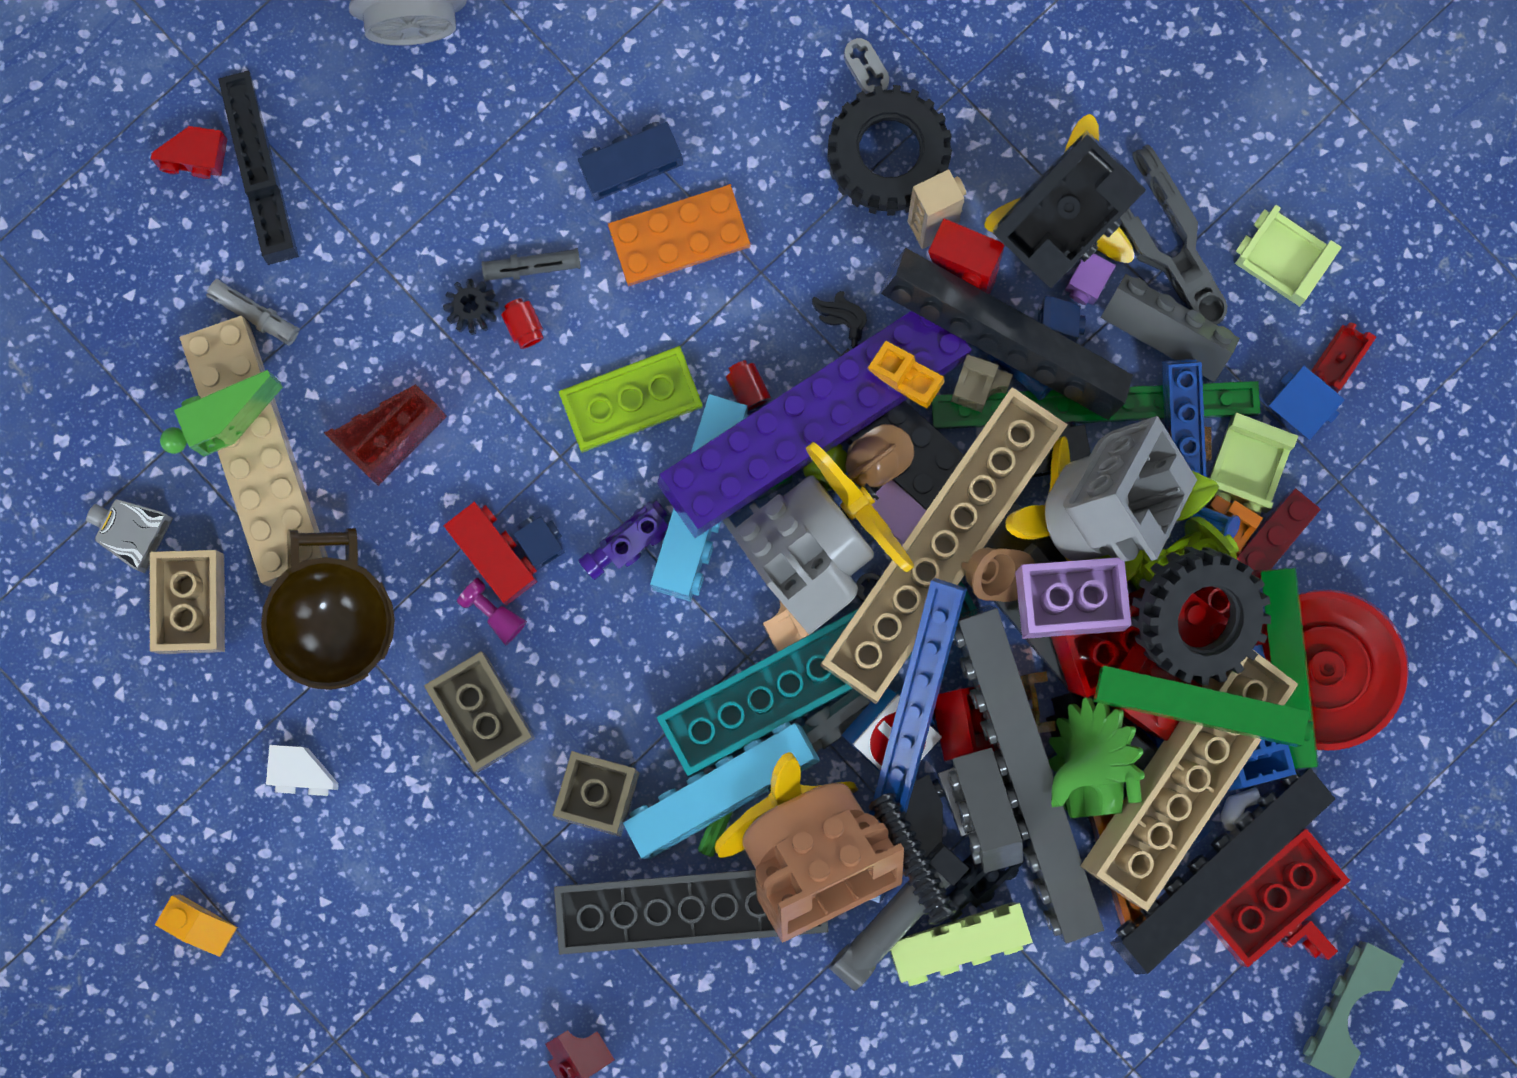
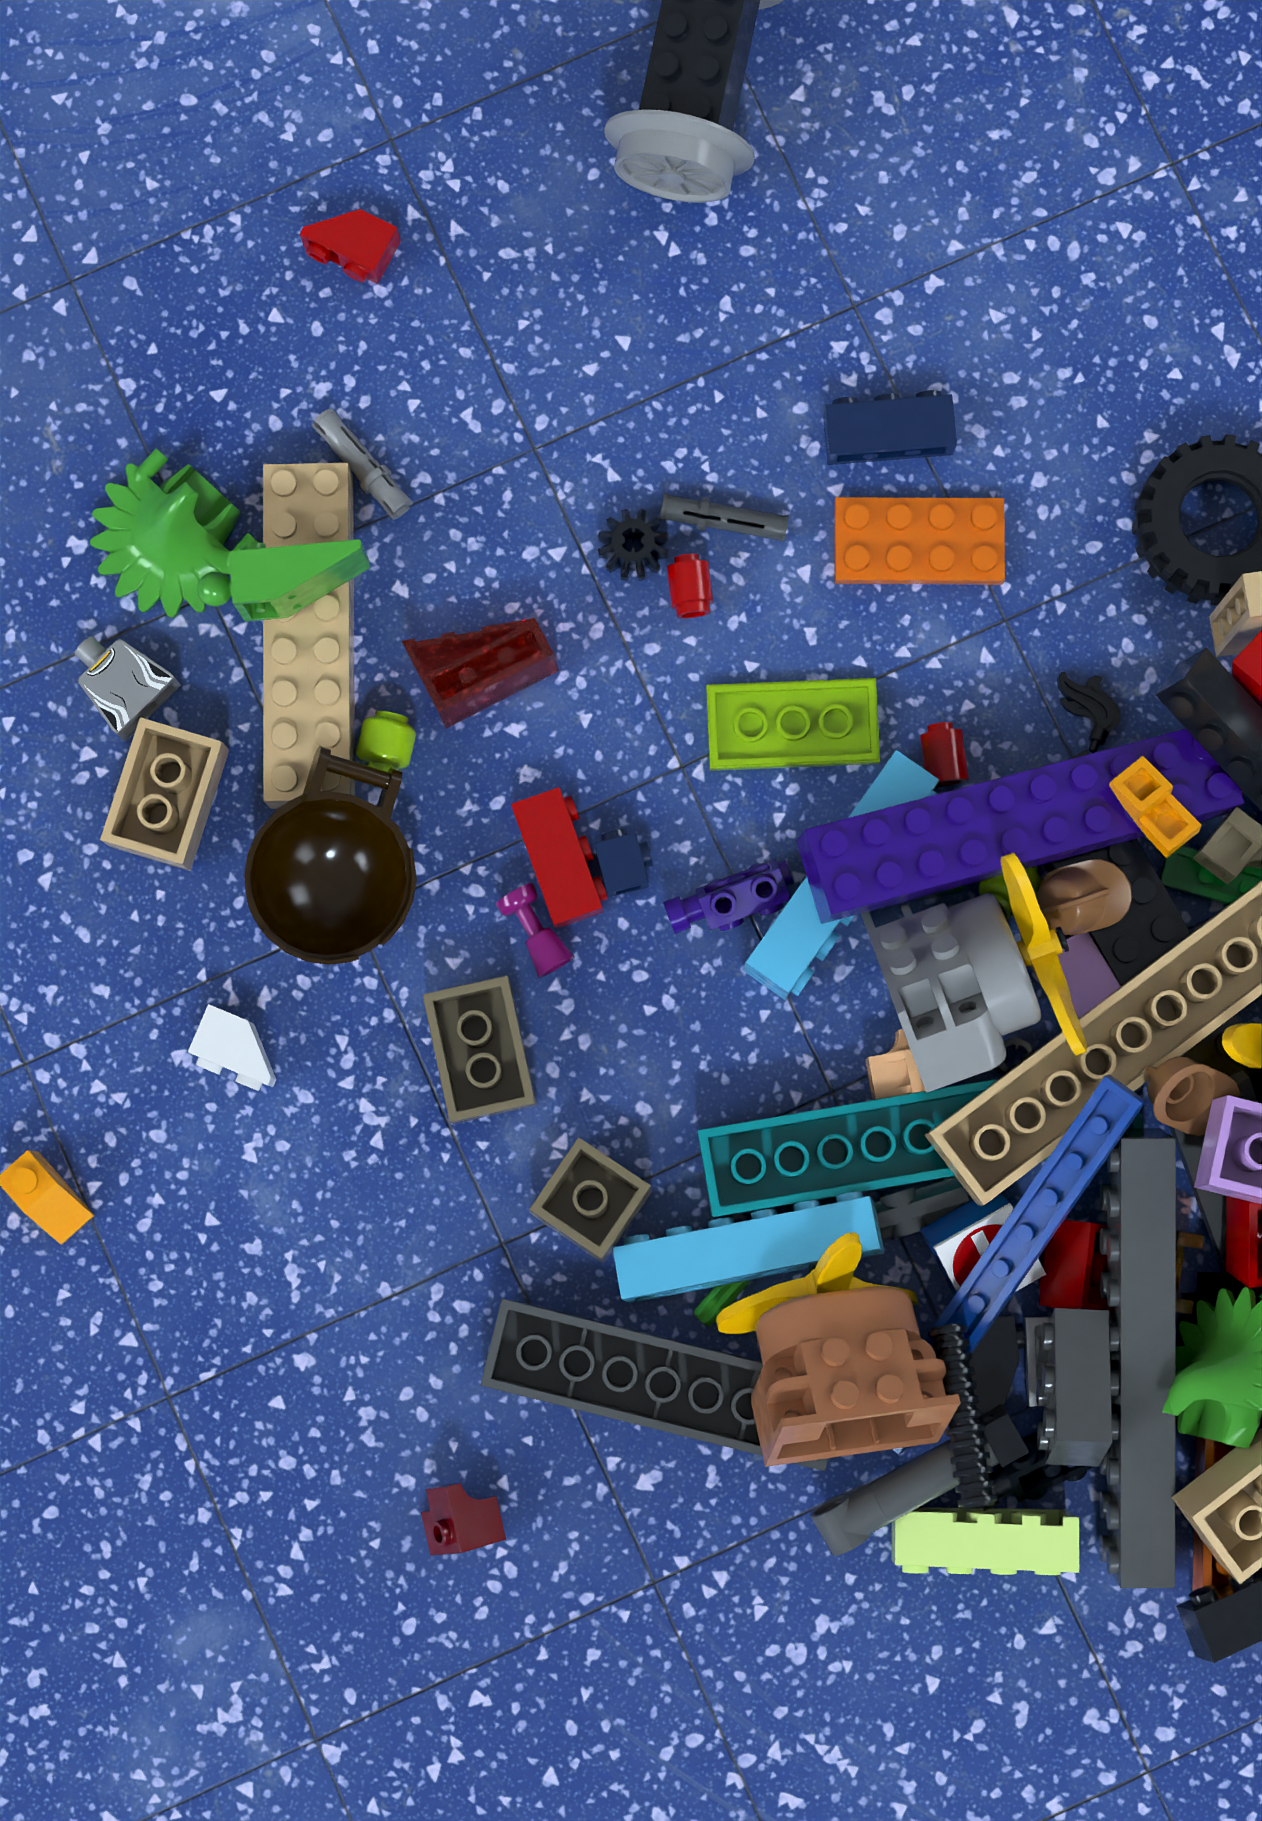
camera: 20 degrees right, 0 degrees up
(124, 412) = (165, 535): none -> bright green piece
(258, 168) = (426, 289): black slope -> none
(337, 509) = (386, 741): none -> lime head
(872, 62) = (1230, 404): light grey beam -> none

